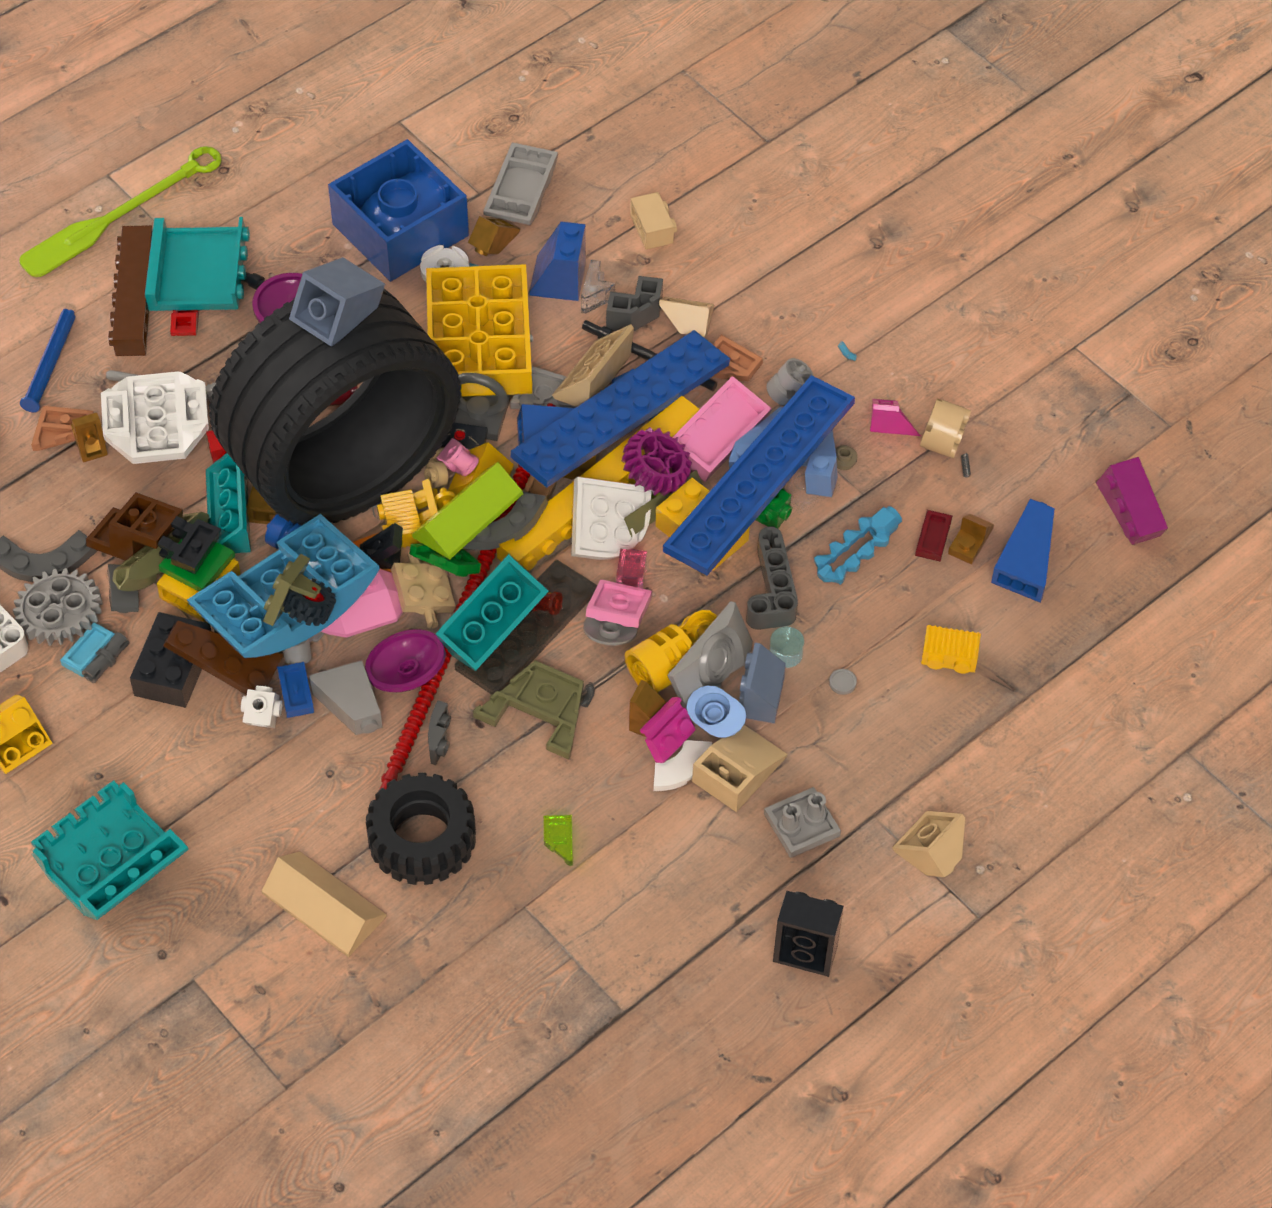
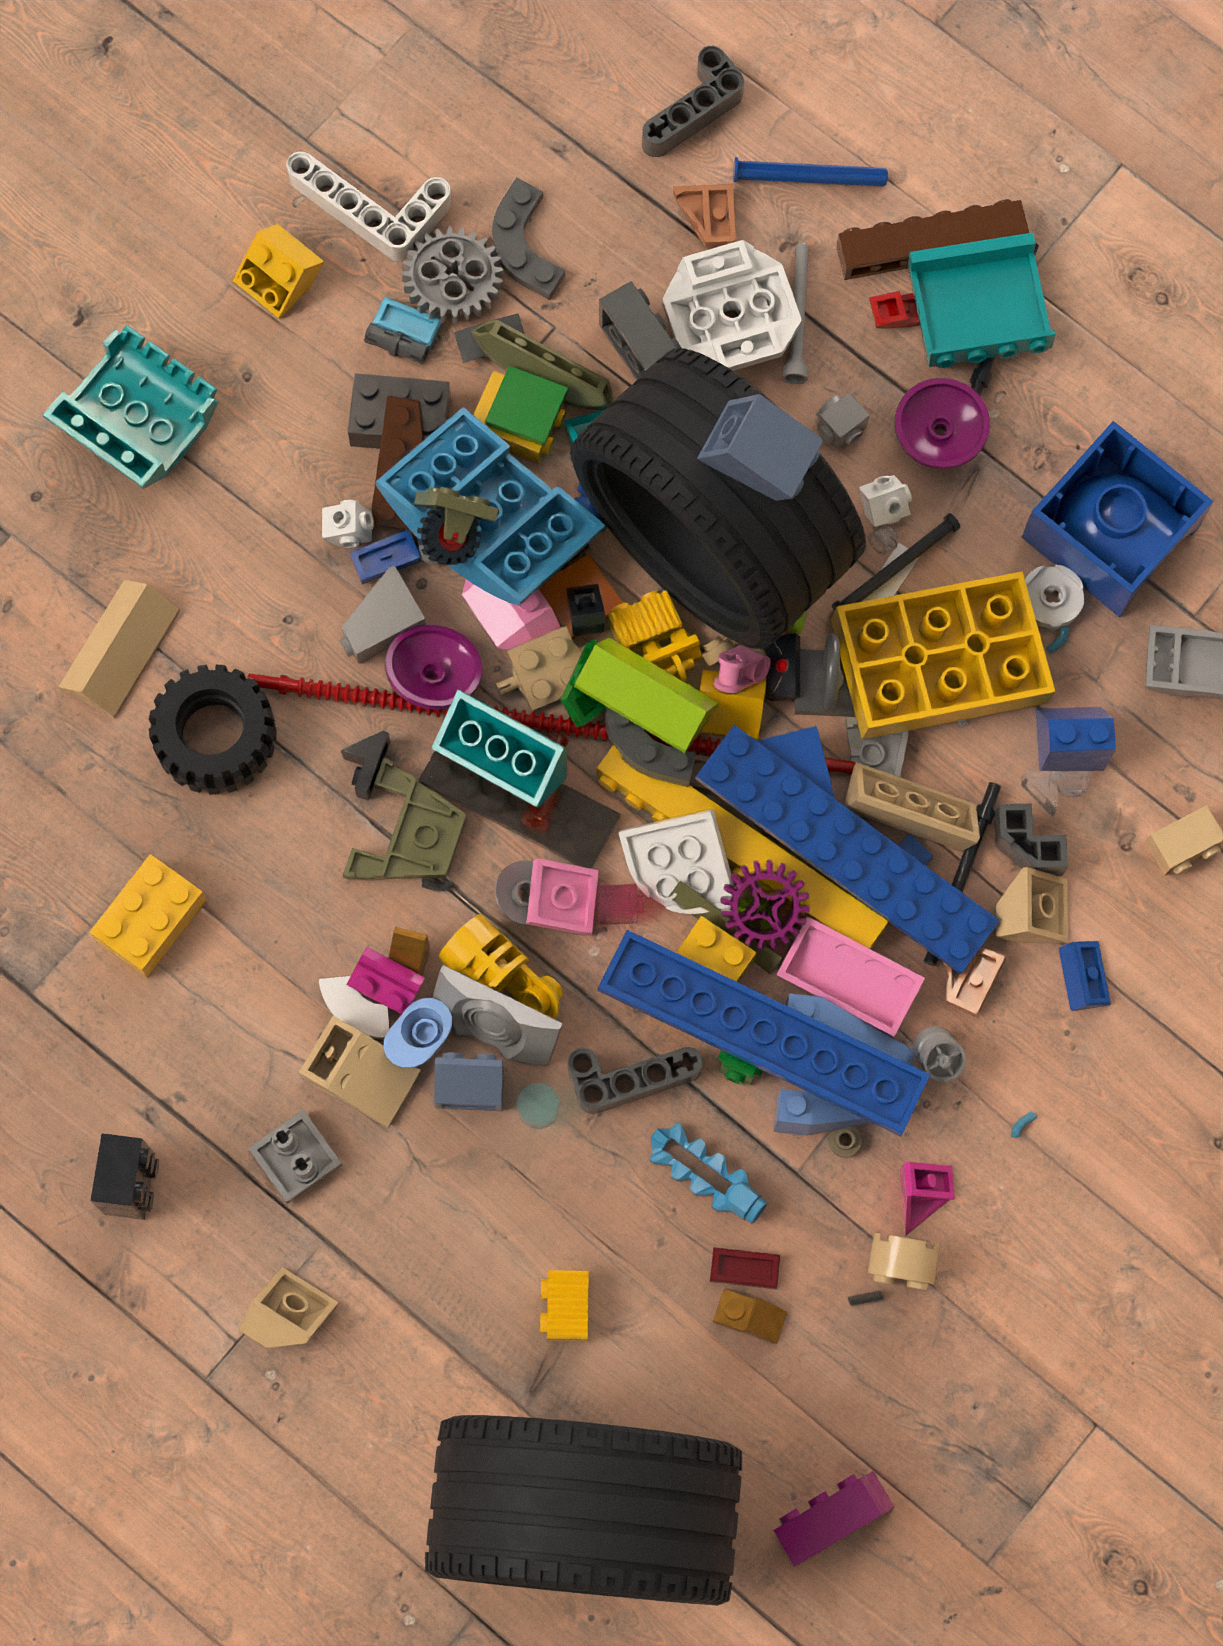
camera: 80 degrees right, 20 degrees up
(84, 234) = (1016, 161): lime piece -> none
(89, 437) = (692, 239): pearl gold slope -> none
(137, 524) = (563, 327): reddish brown bracket -> none
(164, 475) = (634, 328): none -> dark grey brick
(195, 546) = (534, 397): black plate -> none
(437, 732) = (339, 724): dark grey slope -> none
(472, 721) = (370, 754): none -> black slope
(492, 235) = (1115, 645): pearl gold slope -> none
(559, 836) = (238, 884): clear neon green tile -> none
(575, 902) = (148, 916): none -> yellow brick
(741, 299) = (1084, 975): none -> blue slope
(843, 681) = (506, 1181): light grey piece -> none
(1026, 555) = (731, 1388): blue slope -> none
(1136, 603) = (584, 1509): none -> black tyre

